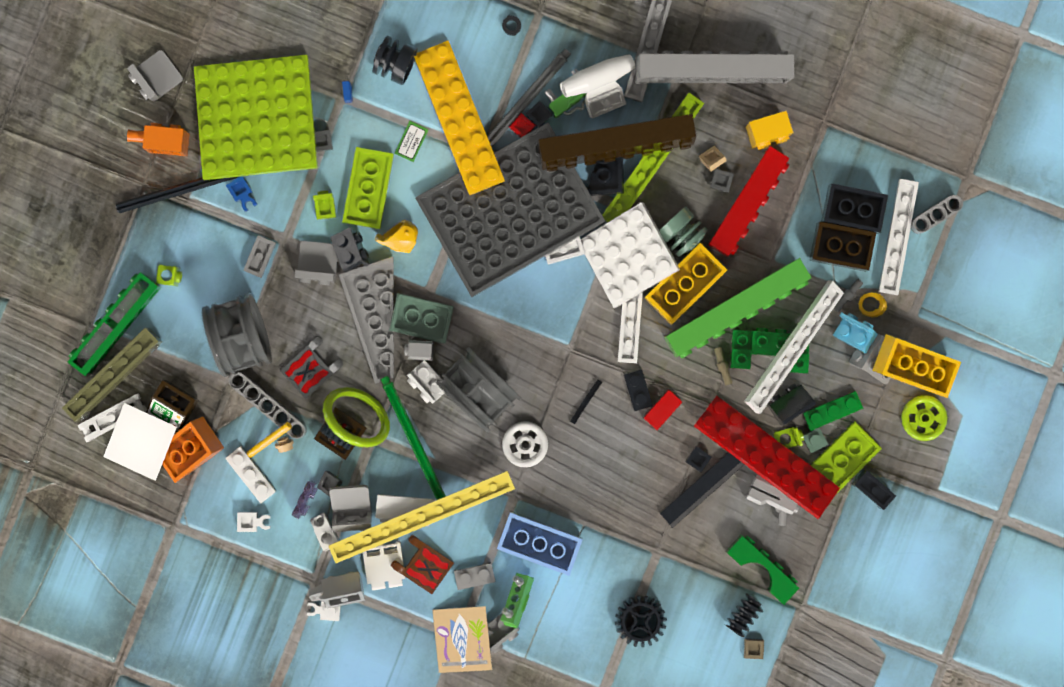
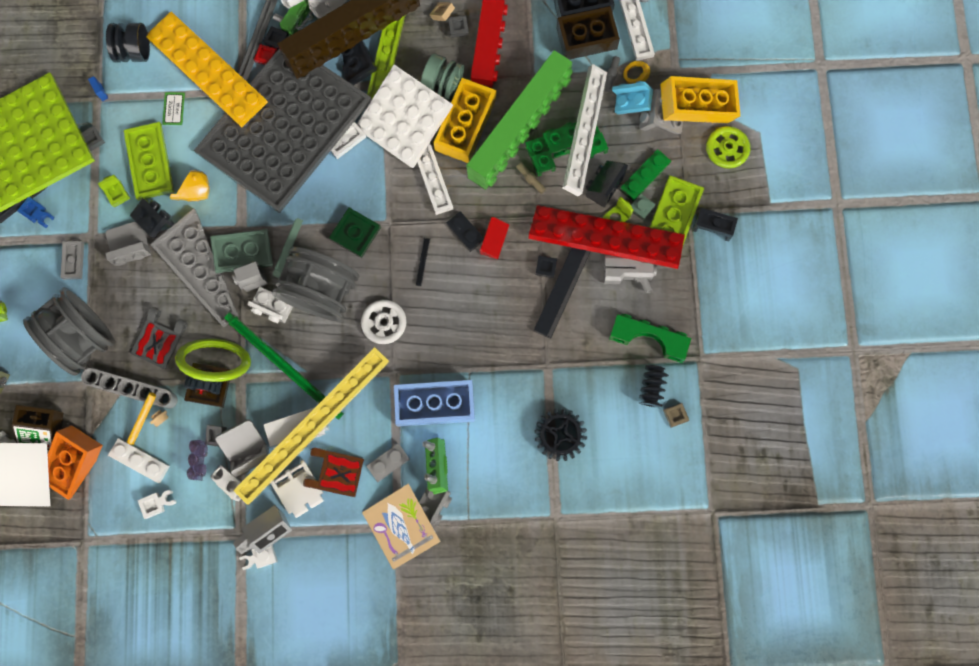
camera: 25 degrees left, 10 degrees down
(465, 337) = (288, 244): none -> sand green tile
(534, 346) = (355, 232): none -> dark green plate

